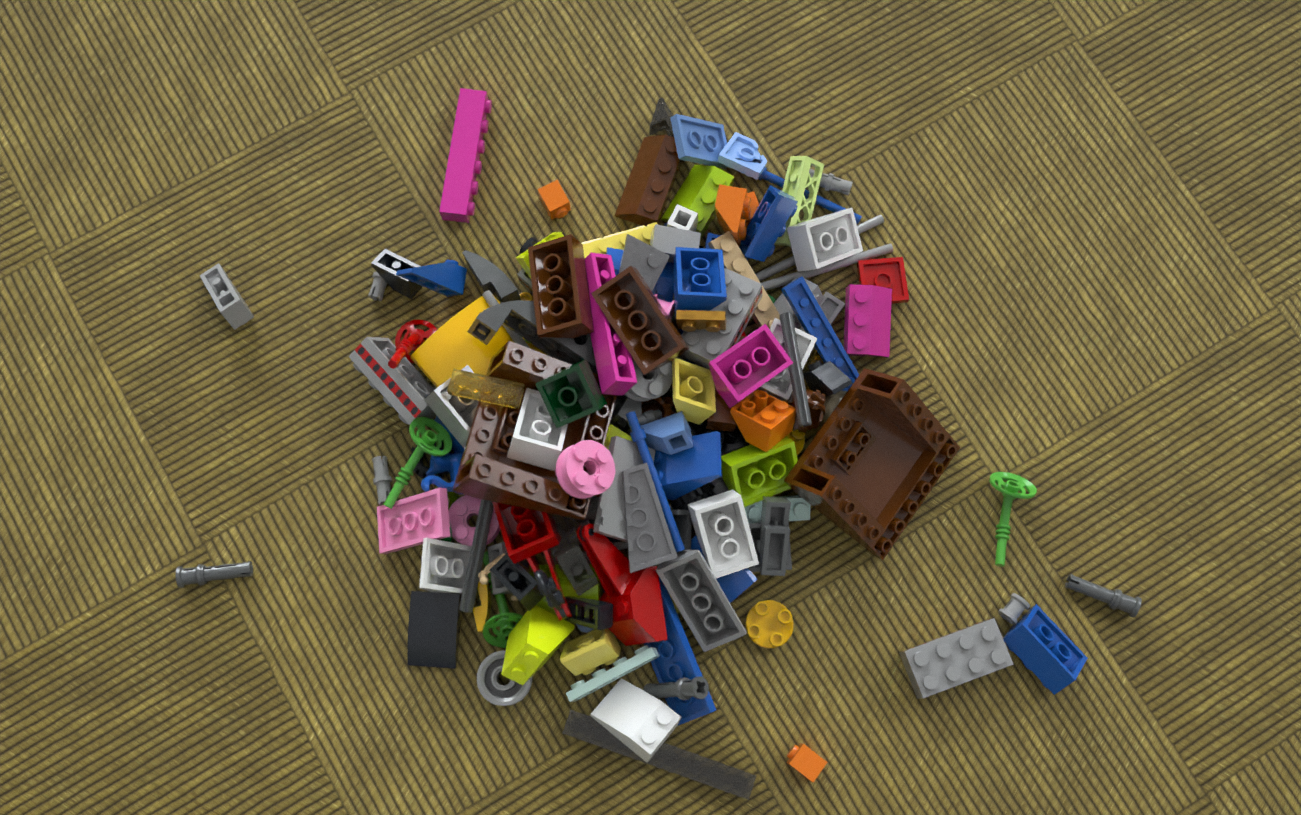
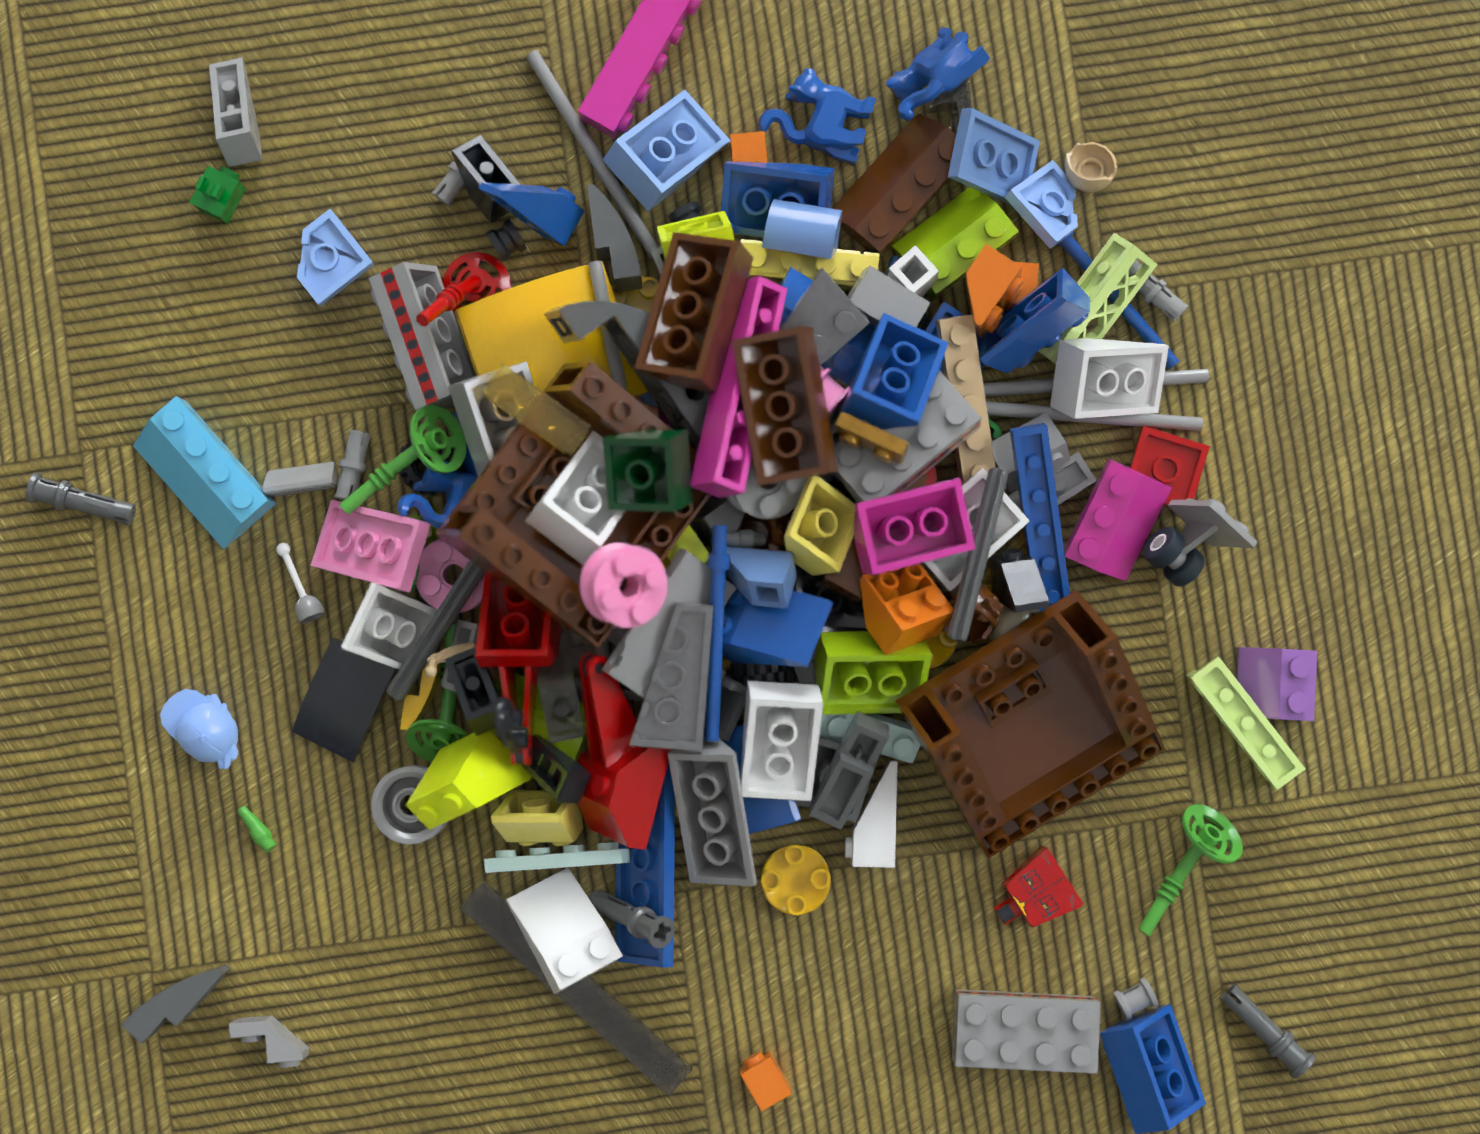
camera: 25 degrees right, 10 degrees up
(233, 348) = (218, 193): none -> green brick
(286, 523) = (202, 471): none -> medium azure slope
(319, 359) = (329, 258): none -> light blue plate
(347, 685) = (201, 727): none -> light blue hair
(352, 503) = (300, 479): none -> light grey slope
(388, 580) = (307, 607): none -> hinge
(410, 739) = (258, 831): none -> bright green piece
(425, 305) = (506, 240): none -> black wheel
(458, 235) = (592, 152): none -> light grey piece
(501, 215) = (665, 150): none -> light blue slope
(583, 214) = (754, 185): none -> blue slope
(593, 165) = (825, 127): none -> blue animal
(604, 223) = (802, 229): none -> medium blue brick
(645, 105) = (938, 67): none -> blue animal
(759, 127) = (1090, 167): none -> tan hair
(805, 573) = (875, 828): none -> white slope
(921, 299) = (1204, 521): none -> light grey plate
(923, 566) = (1037, 891): none -> red torso
(1001, 410) = (1246, 722): none -> yellowish green fence
(1007, 379) = (1279, 681): none -> medium lavender slope

